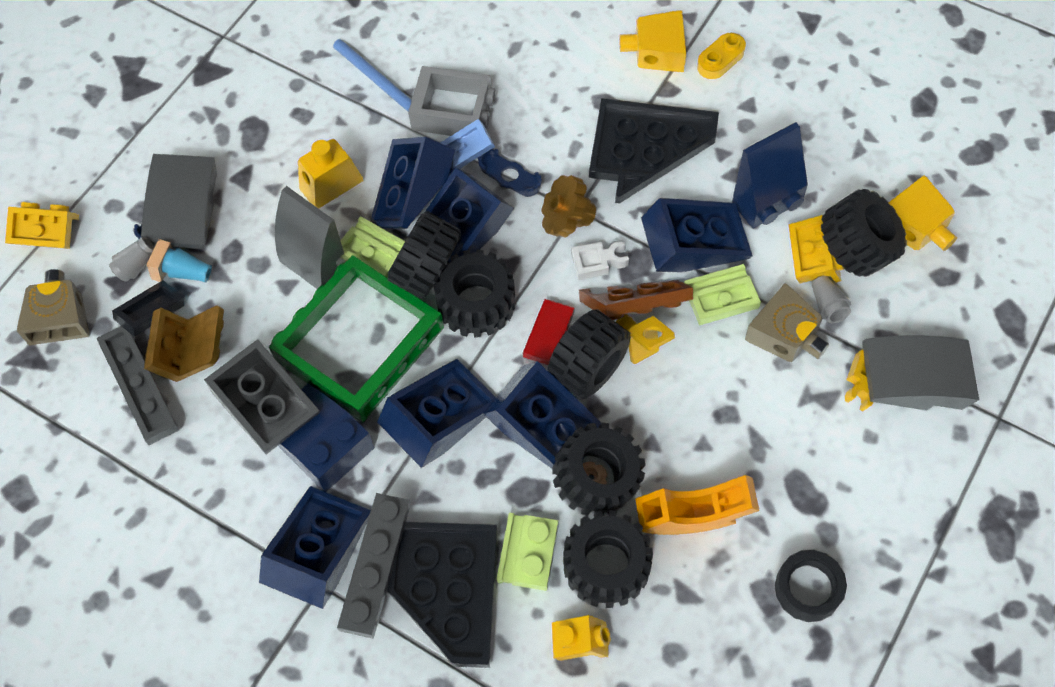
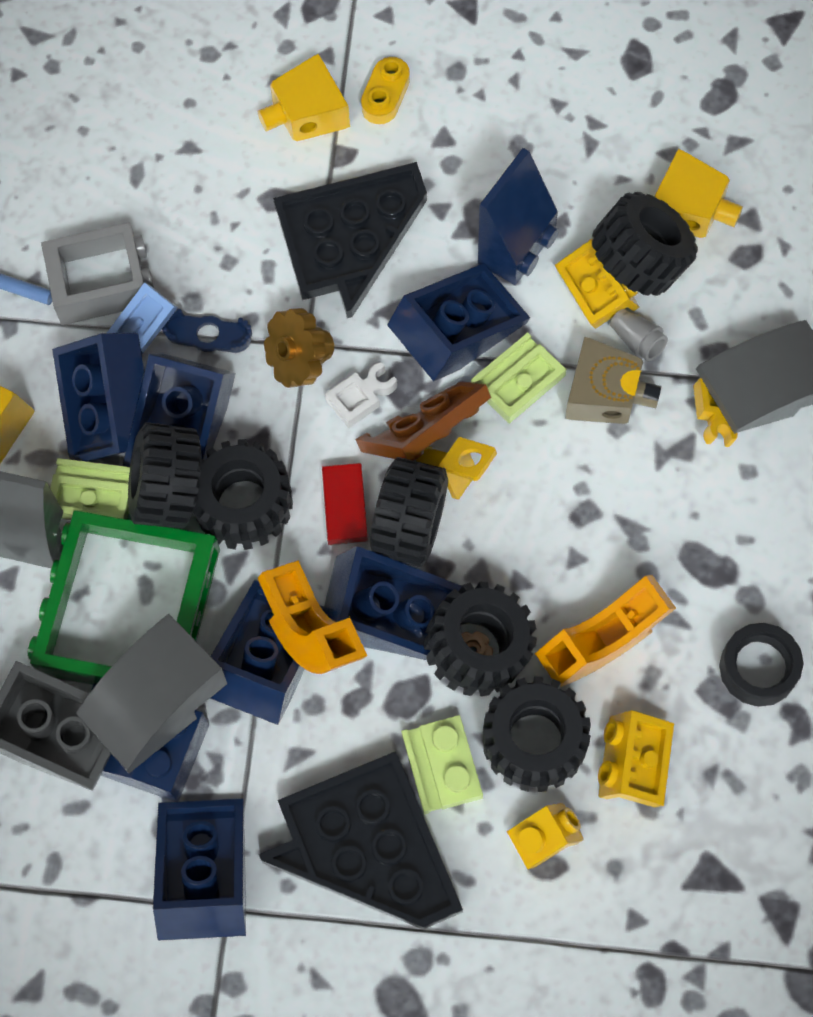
camera: 25 degrees left, 5 degrees up
(336, 401) = (151, 693): none -> dark grey slope
(374, 566) = (282, 860): dark grey plate -> none
(471, 402) = (303, 626): none -> light orange arch
(677, 613) = (636, 758): none -> yellow bracket

